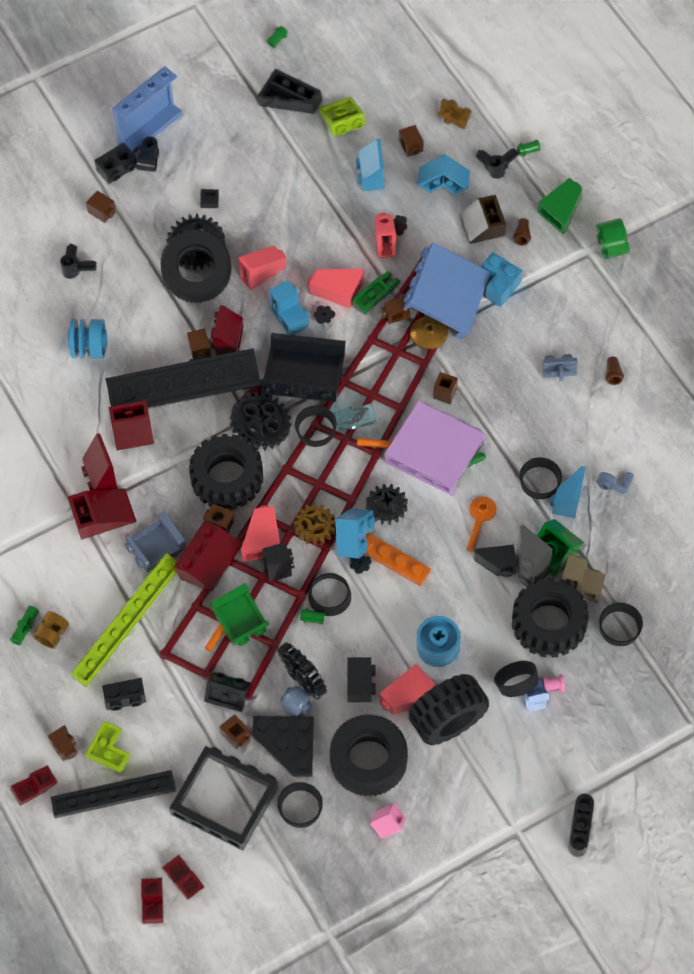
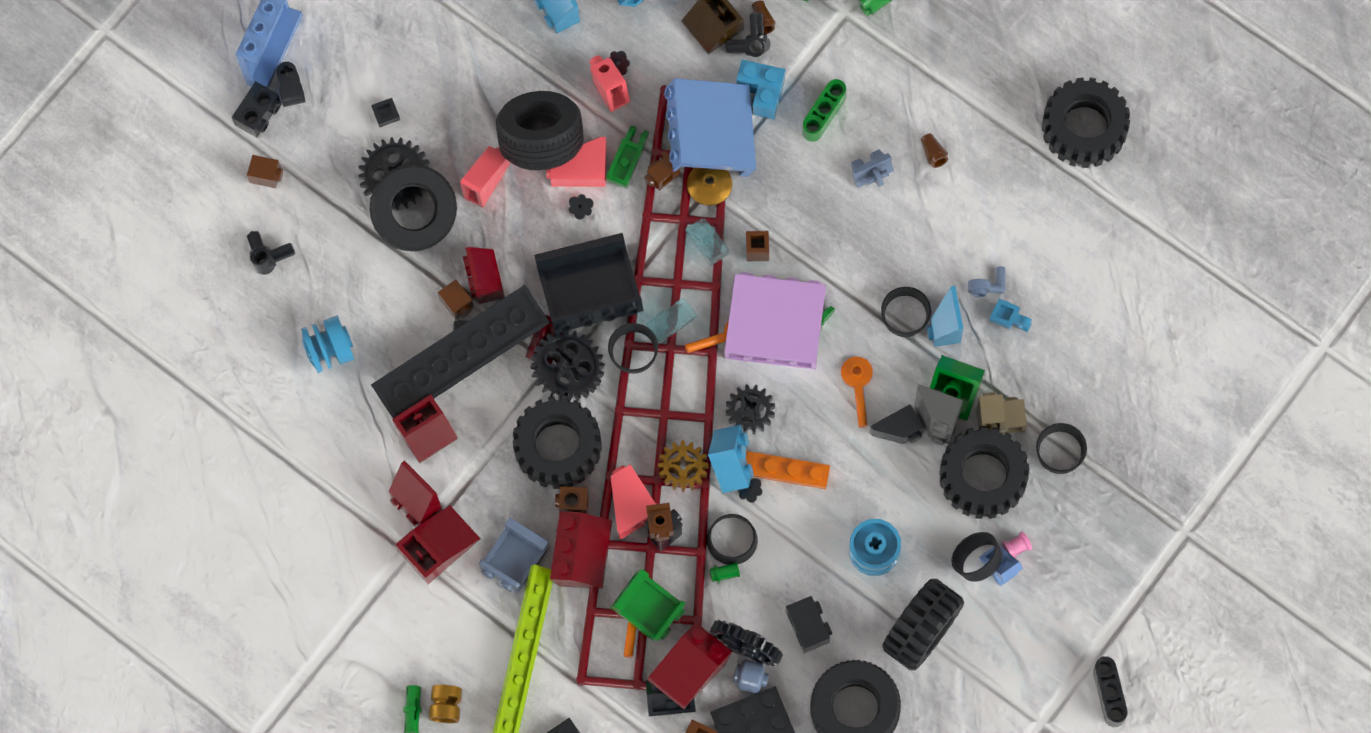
camera: 20 degrees left, 10 degrees up
(251, 671) = (690, 665): none -> dark red slope
(275, 556) = (660, 511): none -> reddish brown brick
(287, 308) = (538, 219): dark azure brick -> none
(315, 245) = (539, 130): none -> black tyre
(405, 690) = (868, 616): coral slope -> none
(408, 372) = (707, 241): none -> clear light blue slope
(503, 245) = (747, 45): none -> black axle
(545, 305) = (826, 100): none -> green beam
(621, 509) = (1007, 314): none -> dark azure plate

